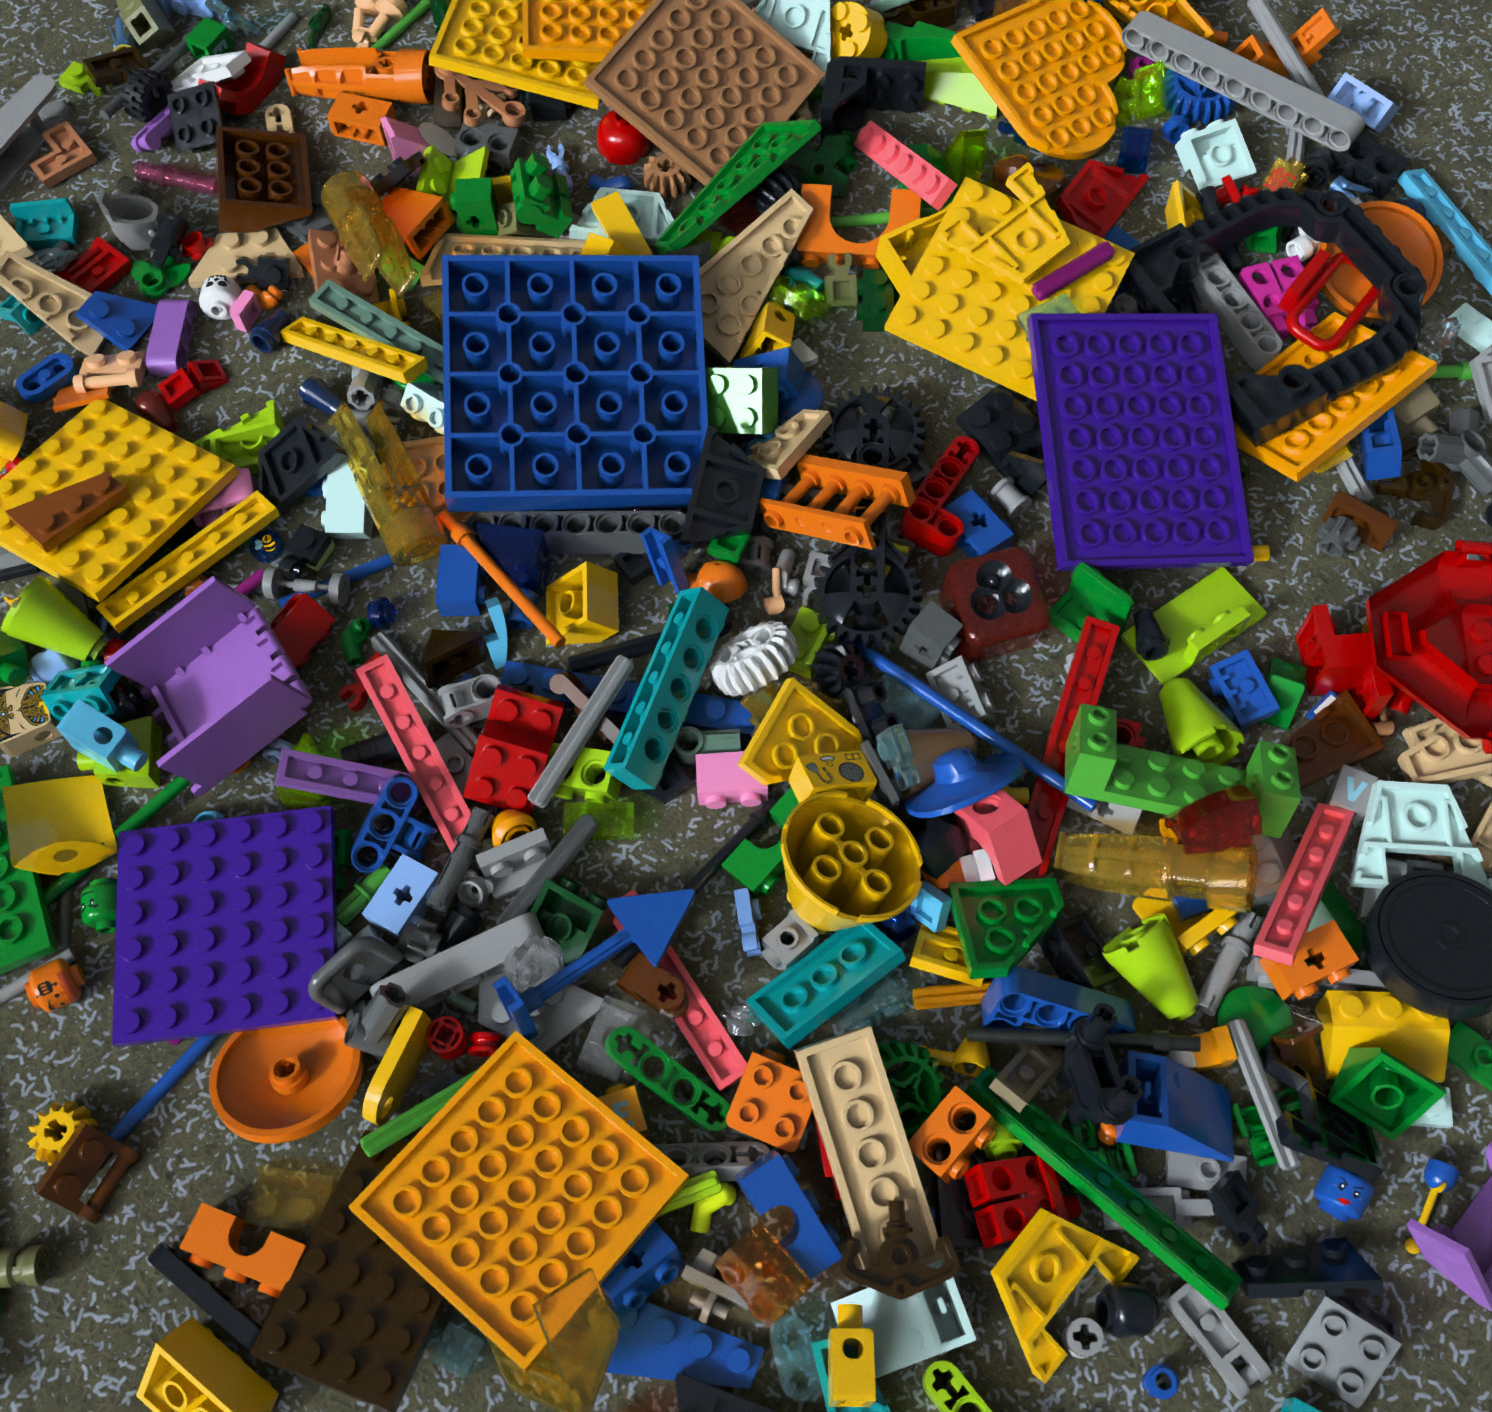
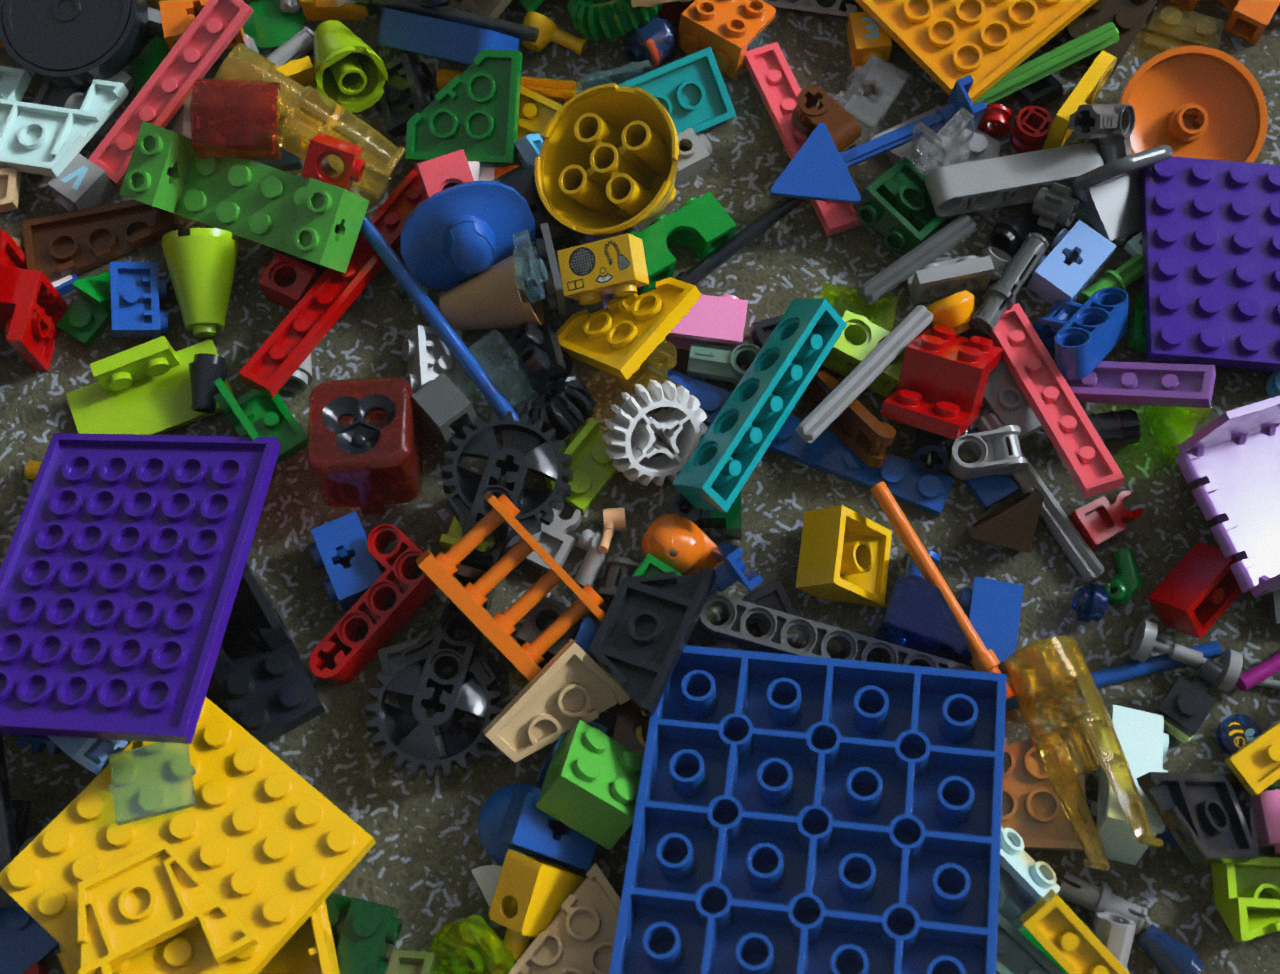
camera: 170 degrees left, 5 degrees up
(497, 642) = (952, 549): medium azure slope -> none
(606, 655) = (809, 498): black axle -> none
(671, 1074) = (829, 45): green beam -> none
(740, 1020) = (751, 90): clear plate -> none
(748, 912) = (720, 177): medium blue plate -> none
(1010, 498) = (294, 596): light grey bush -> none
(1072, 271) = (91, 851): magenta axle -> none
(1109, 815) = (318, 166): none -> red brick

